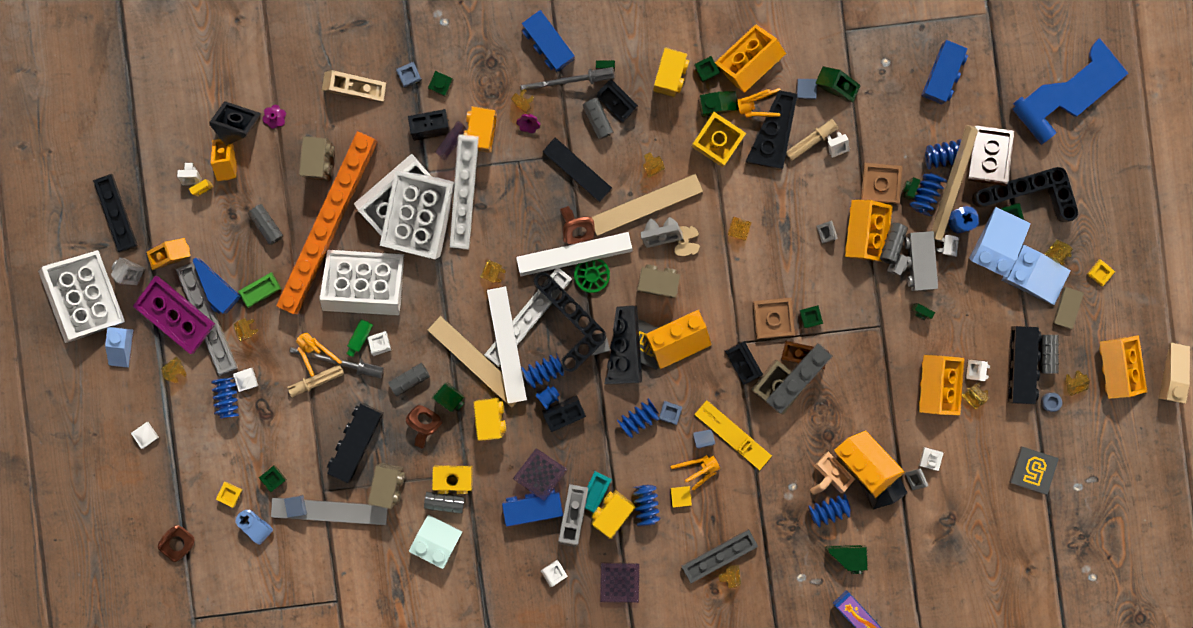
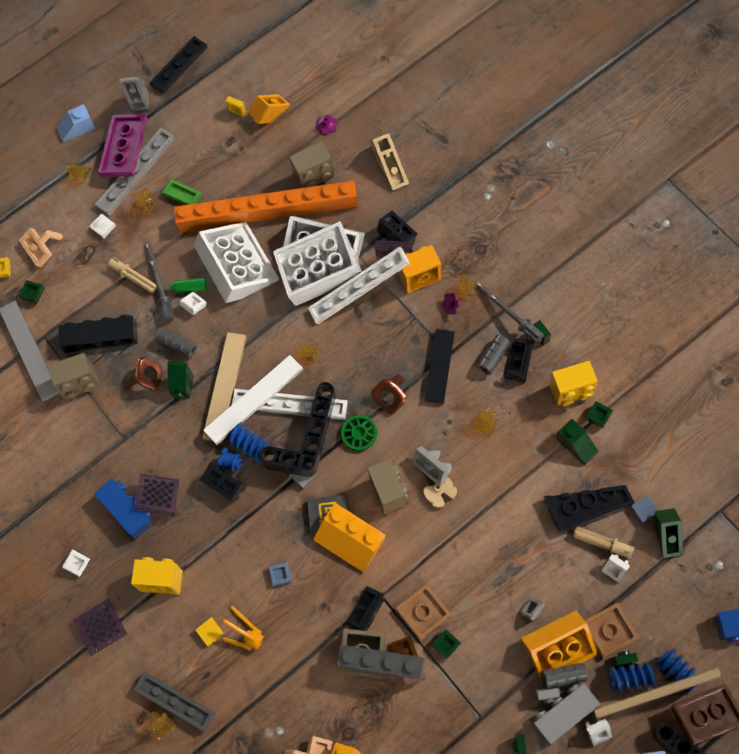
camera: 70 degrees right, 20 degrees down
(81, 296) = (96, 77): white slope -> none
(144, 435) = (14, 183): white tile -> none
(168, 253) = (170, 114): light orange slope -> none
(189, 176) = (240, 92): white tile -> none
(218, 292) = (162, 162): blue slope -> none
(225, 397) = (78, 217): blue piece -> none
(229, 451) = (36, 247): none -> light nougat plate
(233, 122) = (301, 95): black slope -> none
(265, 224) = (236, 166): dark grey axle -> none
(295, 506) = (17, 320): sand blue slope -> none
(308, 344) = (158, 251): light orange plant -> none
(408, 74) = (427, 195): sand blue tile -> none
(435, 541) = (48, 447): light aqua slope -> none
(440, 83) = (436, 222): dark green plate -> none
(444, 502) = (87, 433): dark grey axle -> none
(463, 473) = (103, 420): yellow brick -> none
(489, 418) = (180, 422): yellow brick -> none
(547, 41) = (528, 277): blue brick -> none
(573, 515) = (135, 545): light grey slope -> none
(574, 254) = (367, 407): white tile -> none
(596, 490) = (176, 551): teal tile -> none
(625, 348) = (303, 503): black wing -> none
(639, 418) = (256, 549): blue piece -> none
(646, 204) = (449, 439): tan tile -> none
(646, 505) = (183, 603): blue piece -> none
(703, 438) = (274, 618): sand blue slope -> none
(718, 139) = (545, 460): yellow brick -> none
(733, 435) = (294, 644): yellow piece -> none
(739, 228) = (482, 530): clear yellow tile -> none
(747, 104) = (594, 466): light orange plant -> none
(750, 58) = (635, 444): light orange slope -> none
(968, 222) = (634, 718): blue piece -> none

